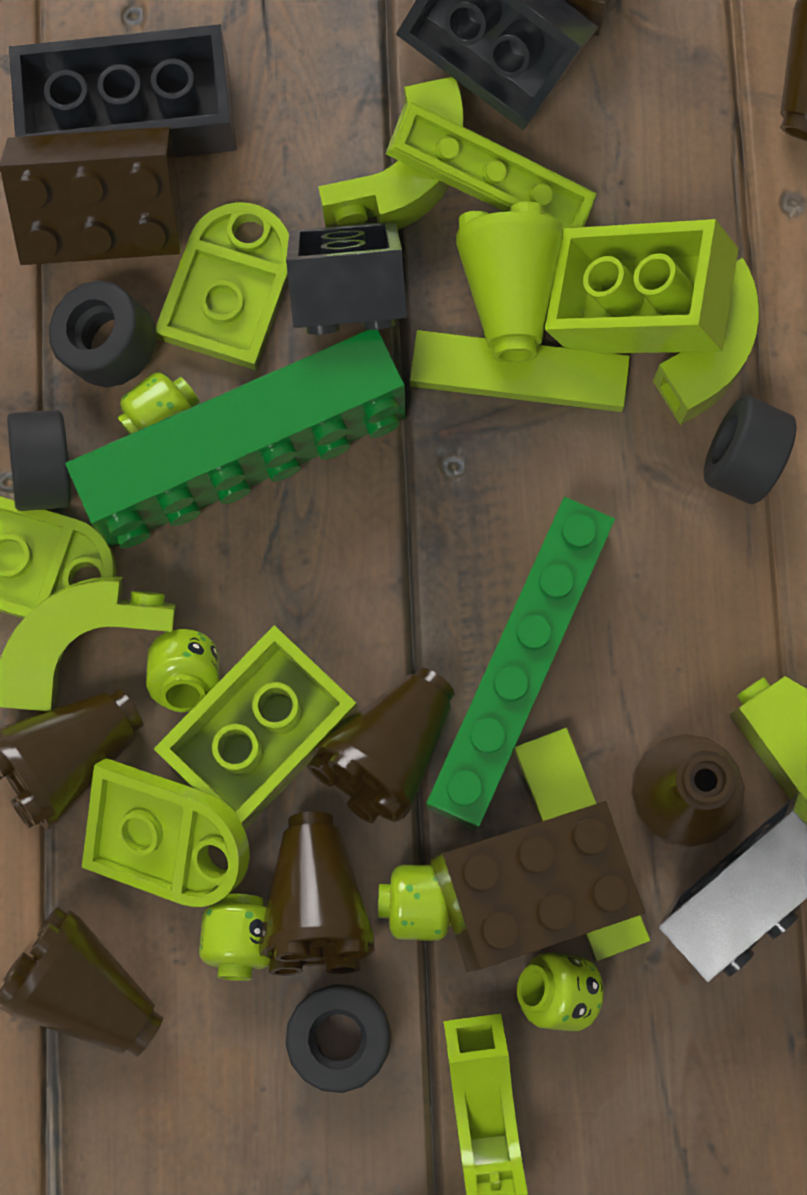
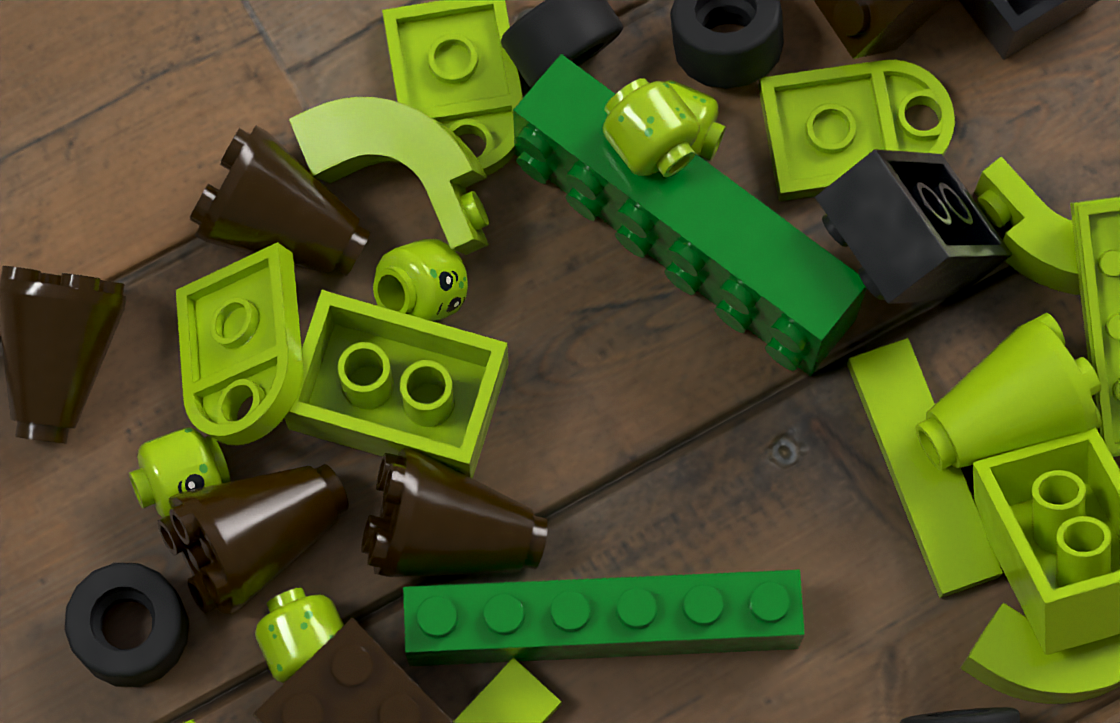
camera: 60 degrees right, 5 degrees down
(169, 422) = (651, 128): none -> lime head

